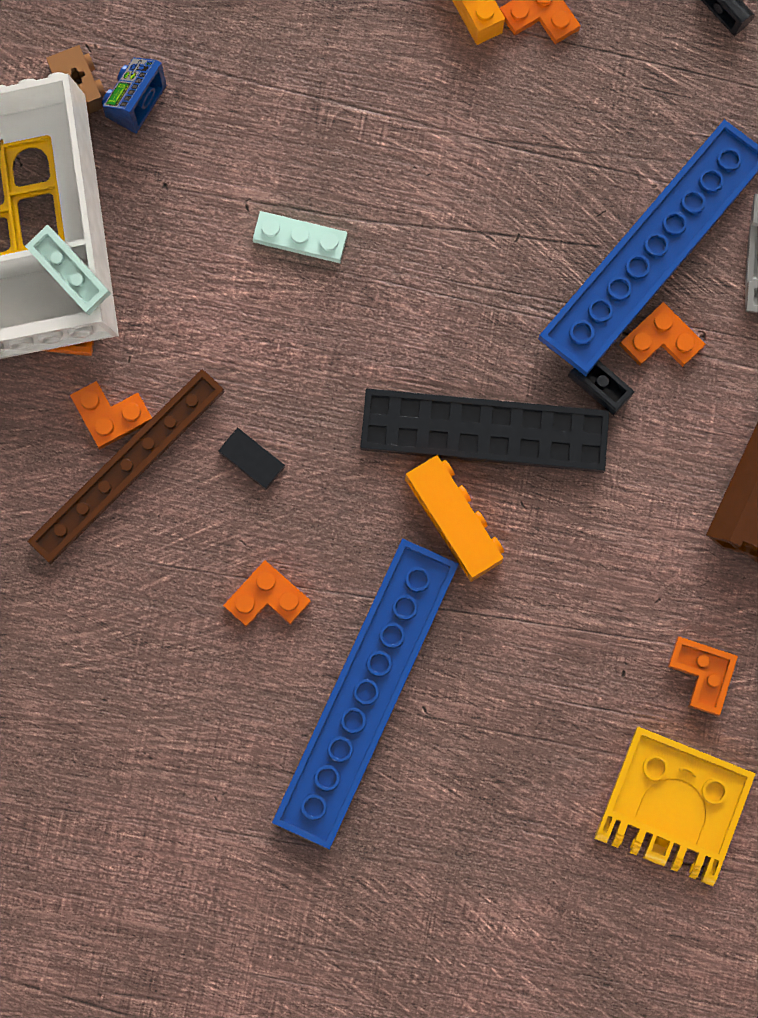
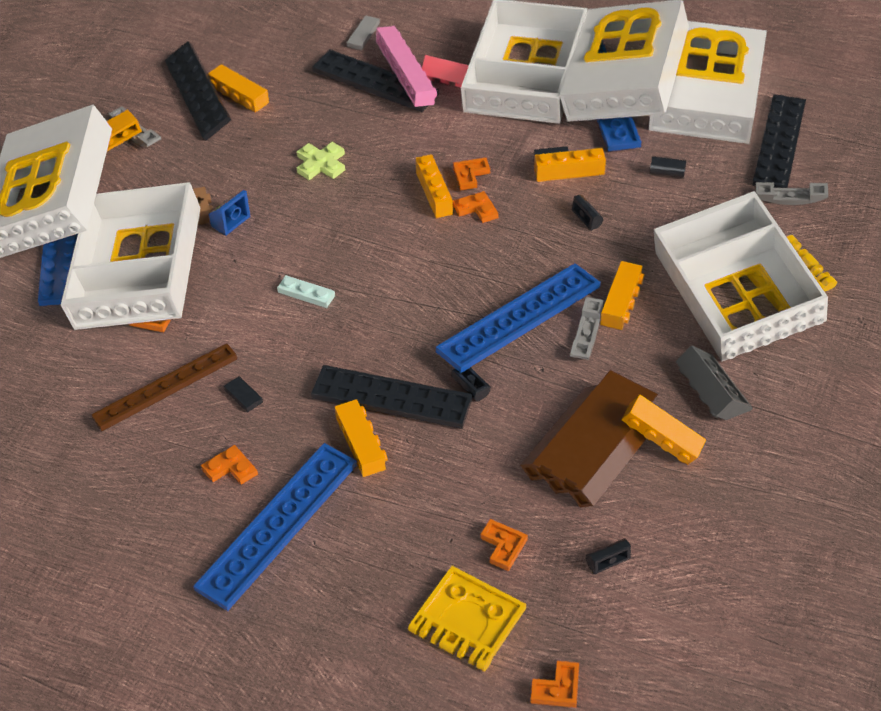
camera: 15 degrees right, 30 degrees down
(68, 269) = (158, 266): light aqua plate -> none
(109, 422) = (160, 363): orange plate -> none
(664, 330) = (515, 361): orange plate -> none

